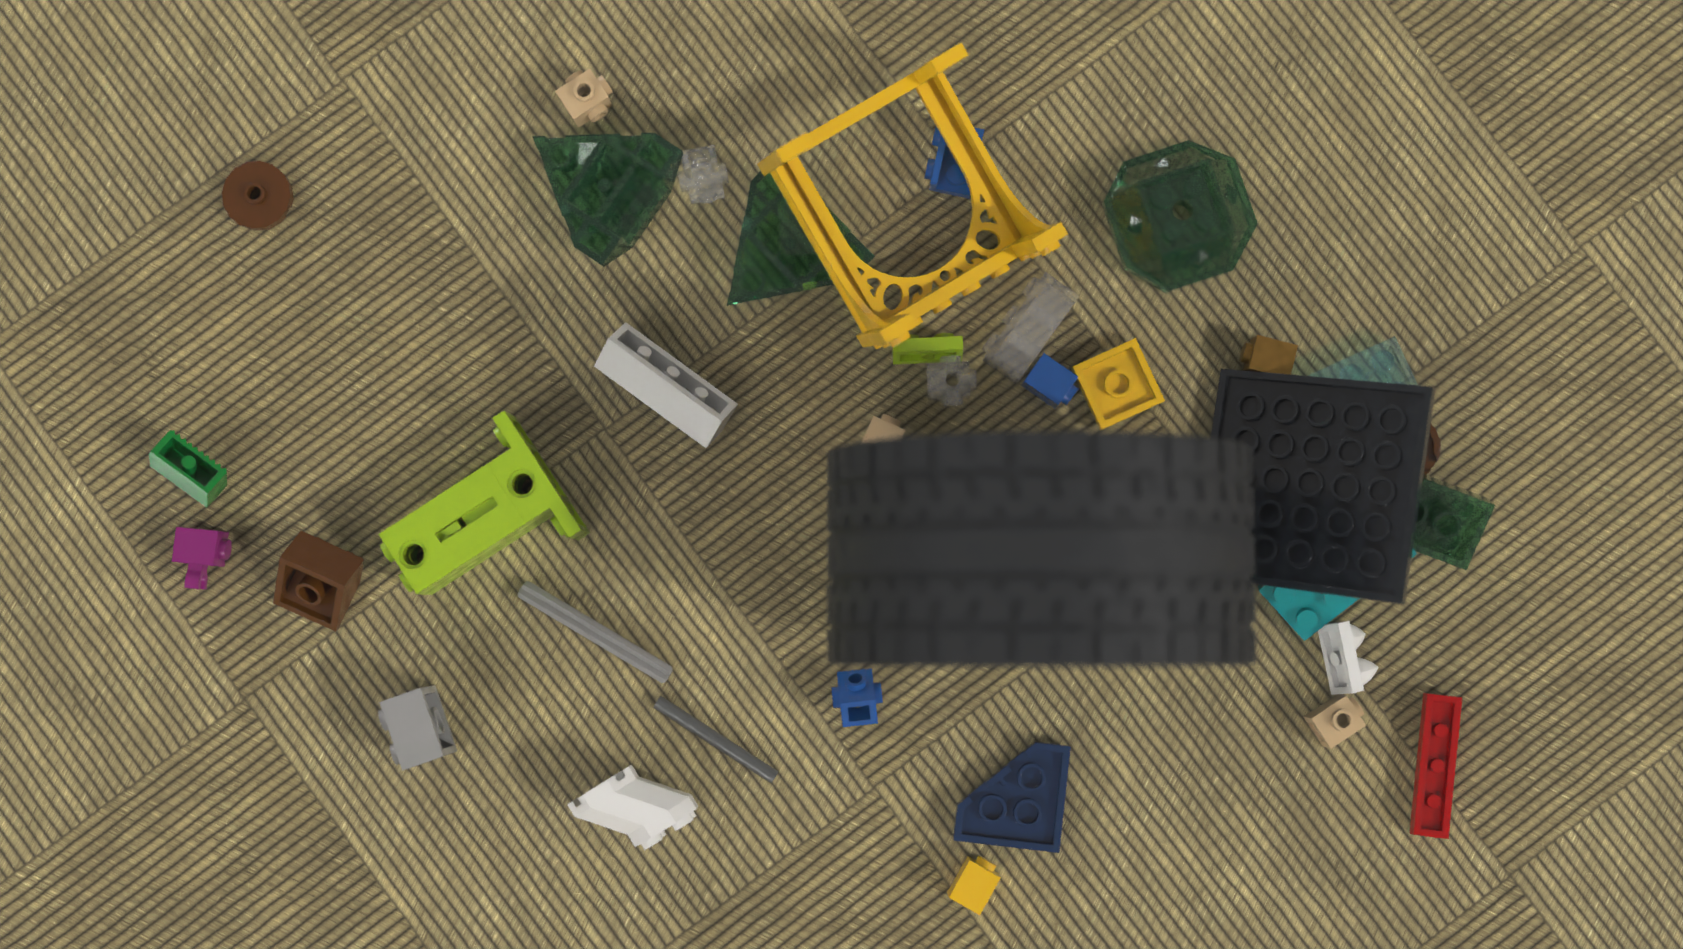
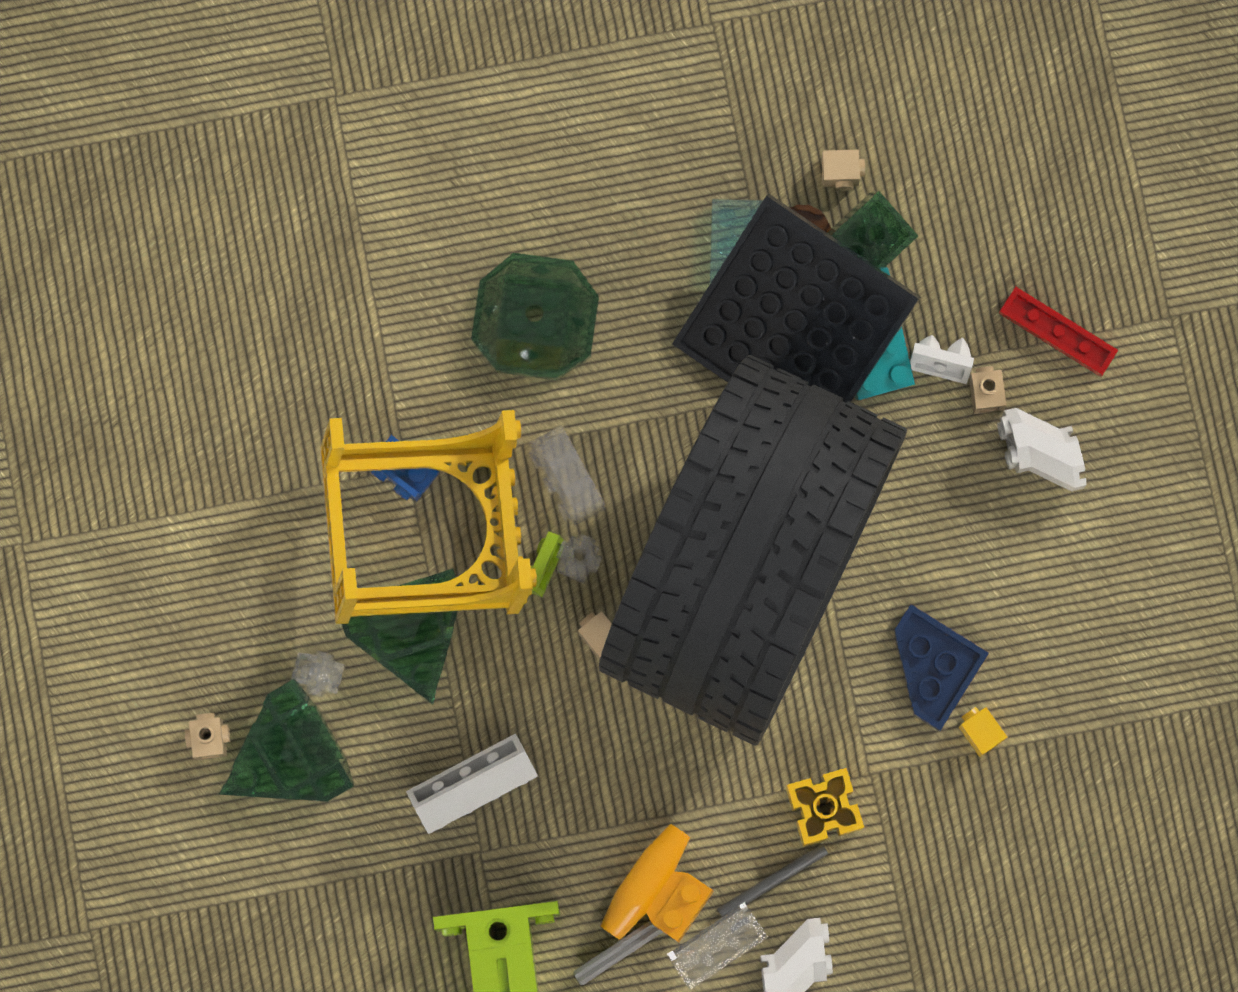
camera: 65 degrees left, 5 degrees down
(619, 715) = (717, 946): none -> clear brick
(648, 625) = (655, 888): none -> light orange plate
(815, 780) = (833, 789): none -> yellow brick
(857, 690) = (792, 751): blue brick -> none
(1051, 382) = (617, 480): blue brick -> none
(1118, 384) = (645, 429): yellow plate -> none
(1268, 355) = (680, 303): pearl gold brick -> none
(1302, 808) = (1042, 449): none -> white brick
(1495, 456) = (842, 169): none -> tan brick

